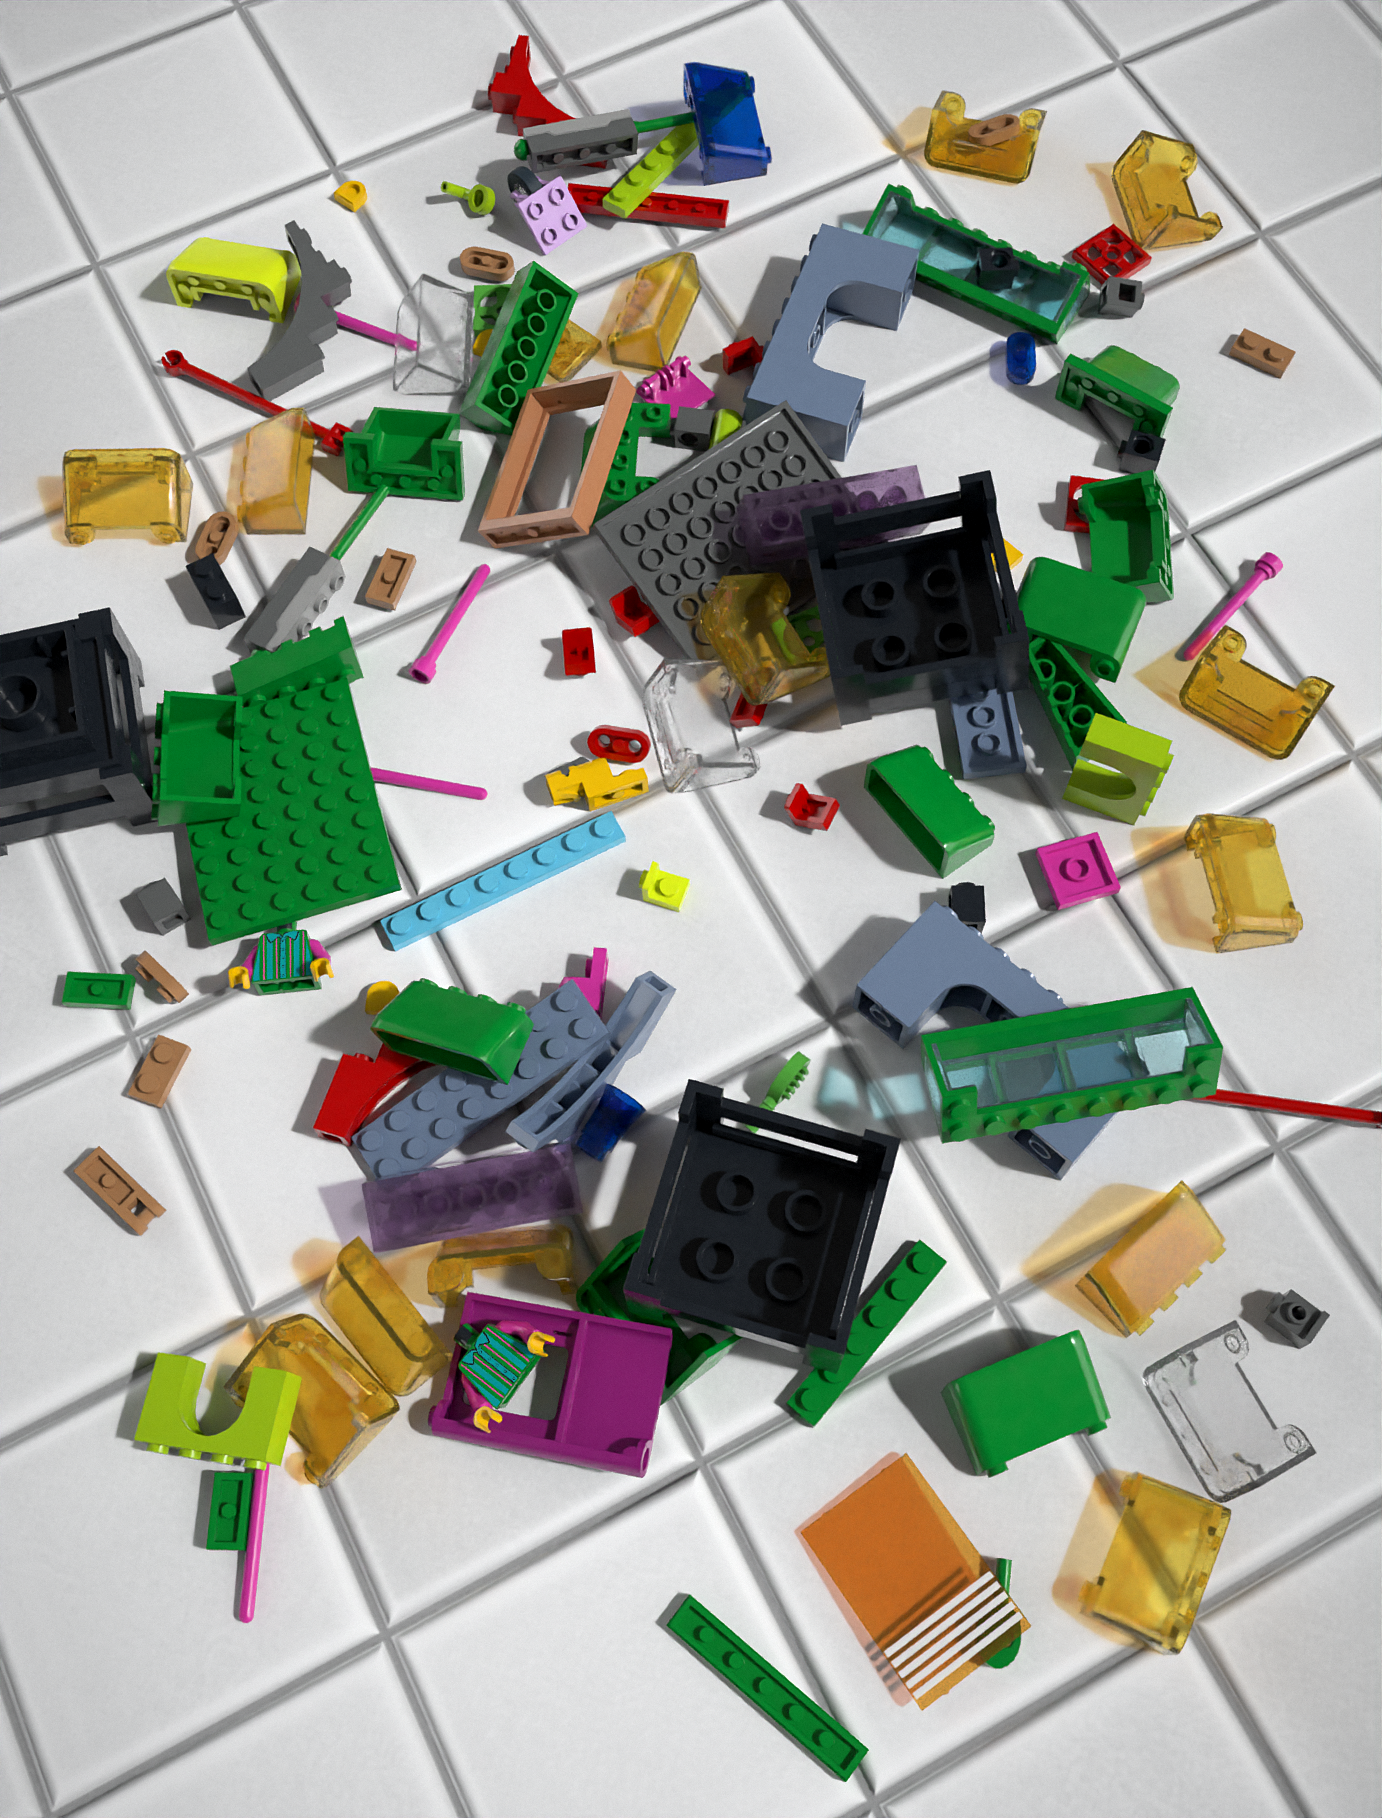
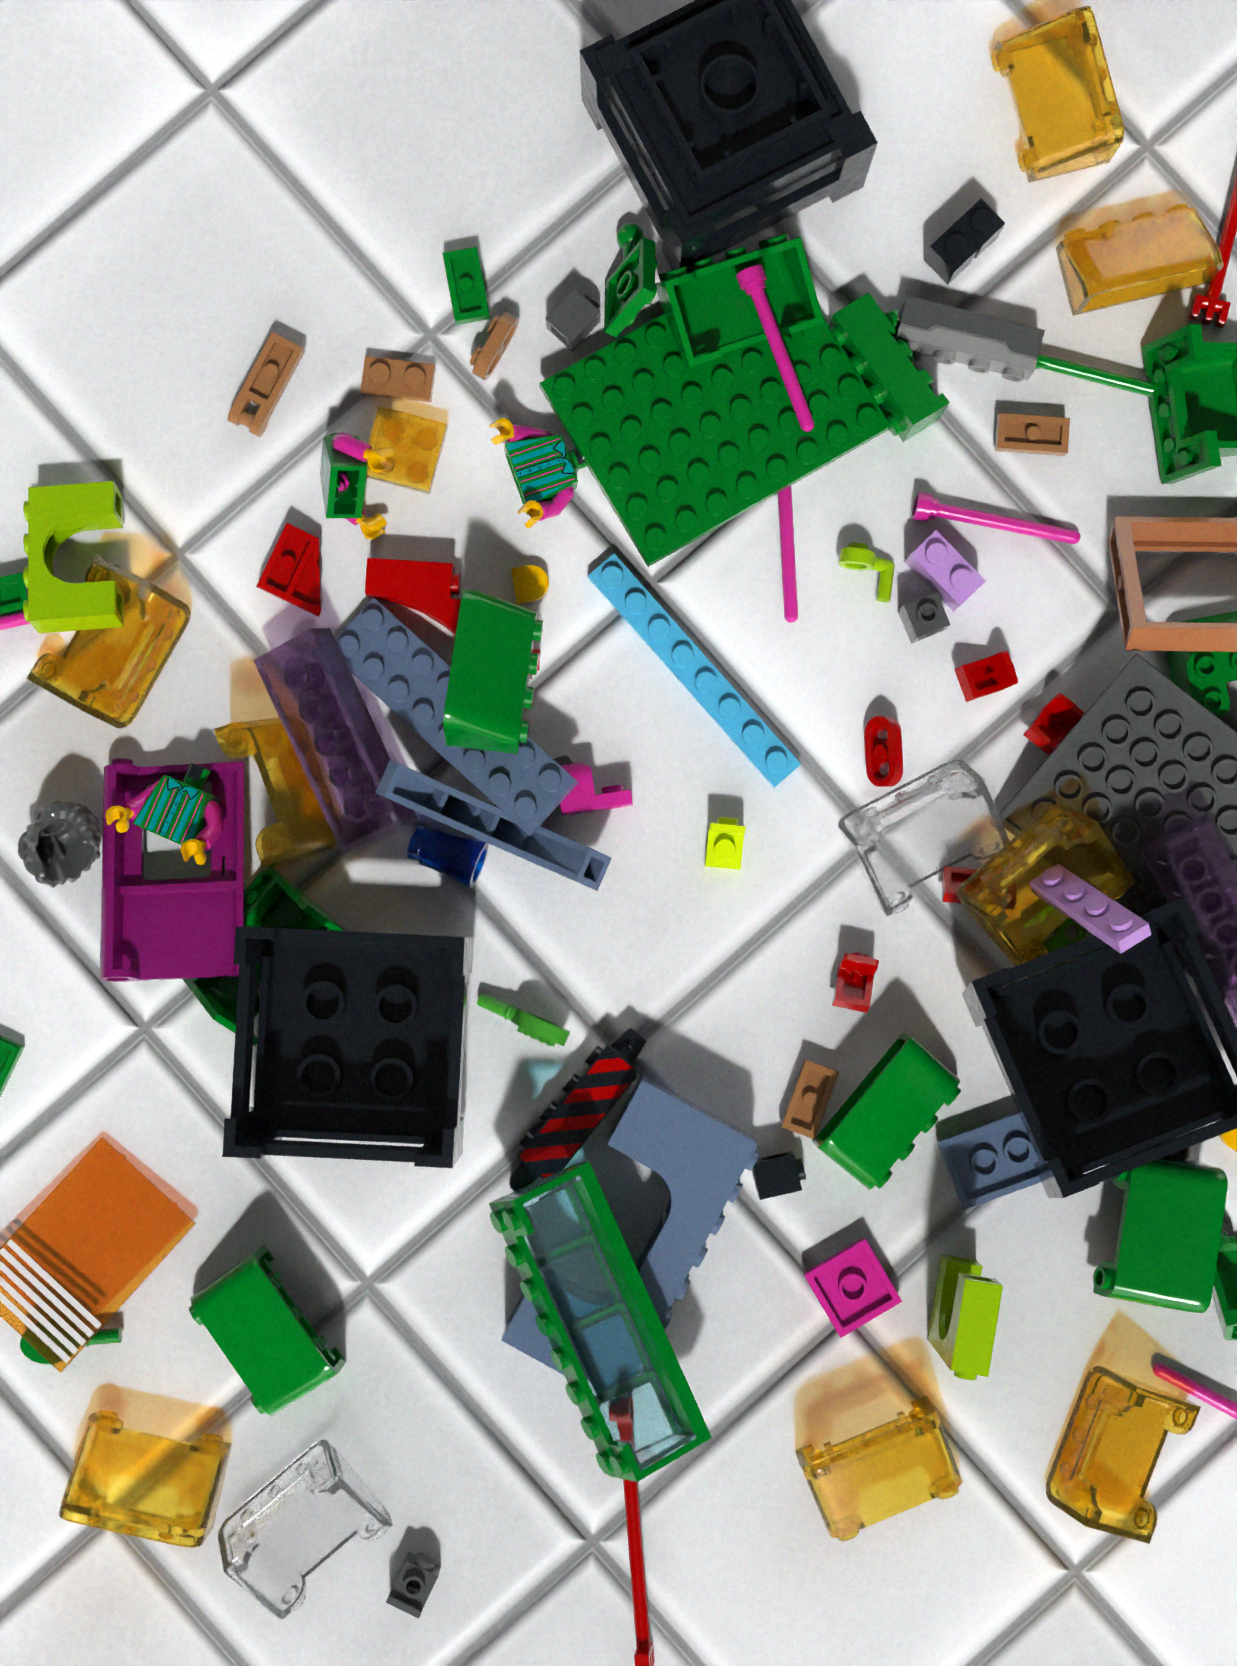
camera: 75 degrees right, 20 degrees up
(150, 843) = (632, 281): none -> green plate
(187, 746) = (753, 282): none -> dark pink piece
(214, 540) = (1034, 215): medium nougat plate -> none
(225, 1078) = (416, 448): none -> clear yellow plate
(231, 1129) = (344, 479): none -> torso
(302, 1205) = (294, 570): none -> red wing
(381, 1321) = (198, 688): clear yellow windscreen -> none
(450, 724) = (859, 557): none -> lime plate
(481, 664) = (944, 570): none -> lavender brick
(494, 1491) = (60, 843): none -> dark grey hair
(515, 687) = (924, 617): none -> dark grey brick
(594, 782) = (830, 733): yellow plate -> none
(792, 595) = (1090, 908): none -> lavender plate
(869, 1331) = (325, 1175): green plate -> none
(875, 1064) = (580, 1111): none -> black hinge
(904, 868) = (809, 1099): none -> medium nougat plate
(1066, 695) = (1055, 1247): green wedge -> none
(1153, 1261) = (437, 1434): clear yellow windscreen -> none

